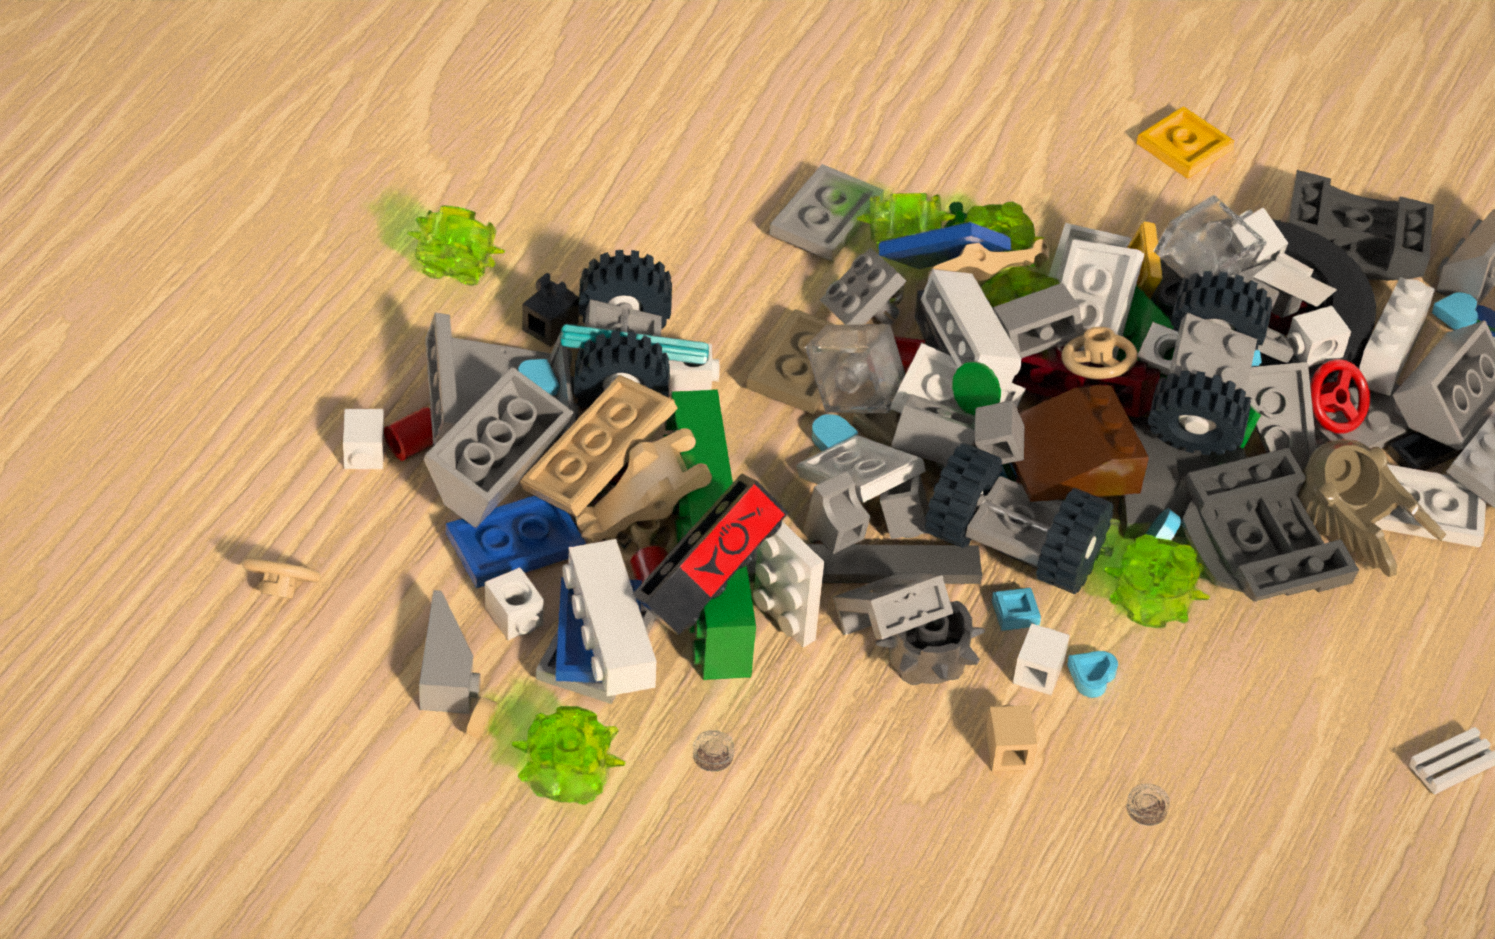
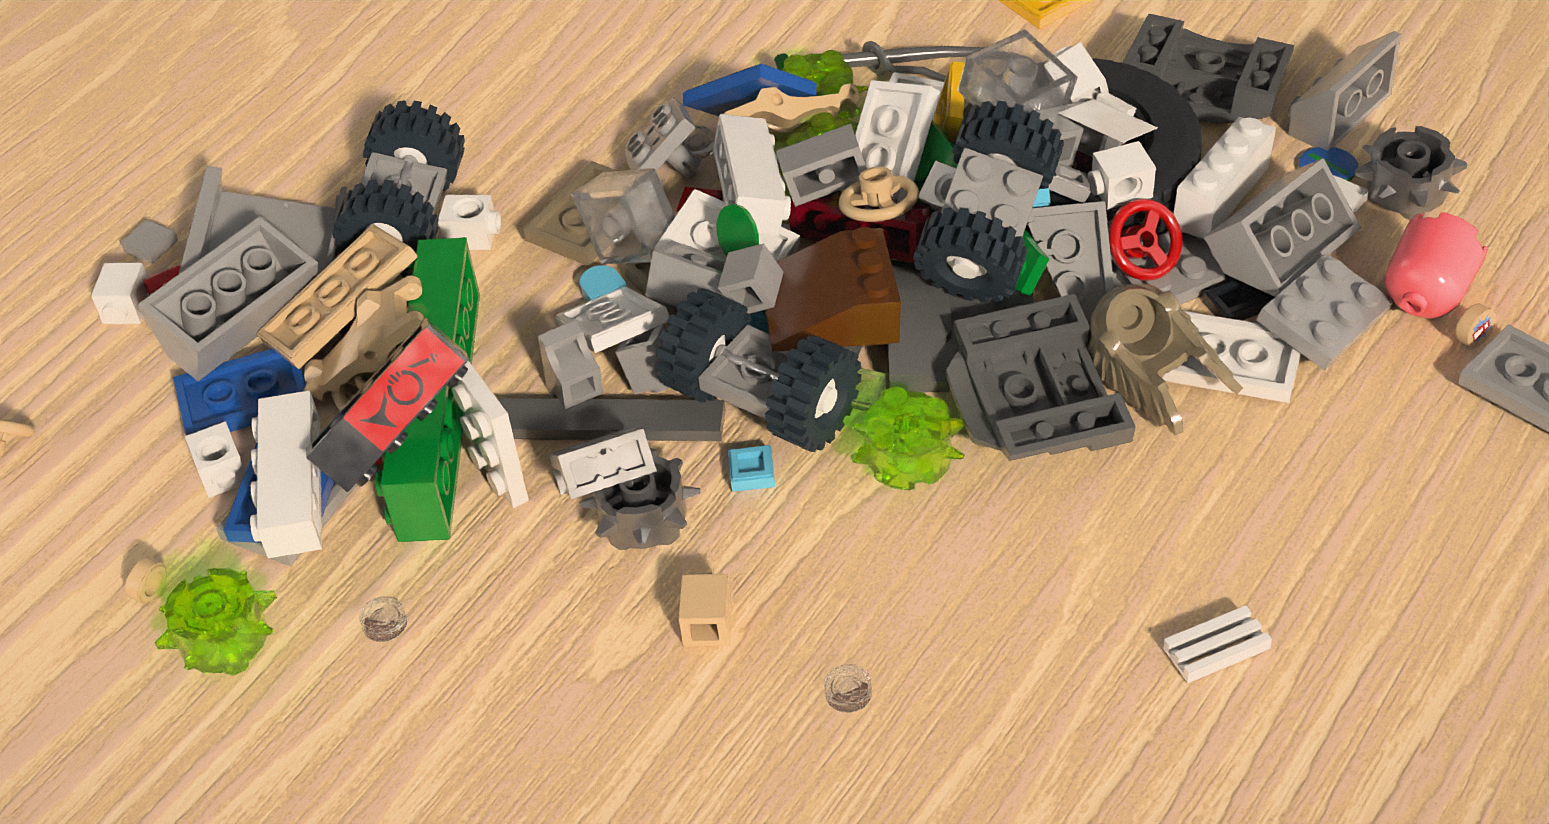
camera: 15 degrees right, 0 degrees up
(368, 384) = (149, 241): none -> light grey tile
(447, 663) = (126, 519): light grey slope -> none
(455, 244) = (264, 104): clear neon green brick -> none
(541, 374) = (310, 231): medium azure tile -> none
(549, 310) = (341, 163): black brick -> none
(676, 349) = (440, 198): axle -> none
(825, 212) = (652, 68): light grey plate -> none
(904, 216) = (715, 61): clear neon green brick -> none
(1041, 659) = (760, 522): white brick -> none
(1047, 205) = (898, 55): none -> dark grey piece
(1092, 672) = (820, 537): medium azure tile -> none
(1165, 525) = (927, 378): medium azure tile -> none
(1456, 310) = (1303, 150): medium azure tile -> none

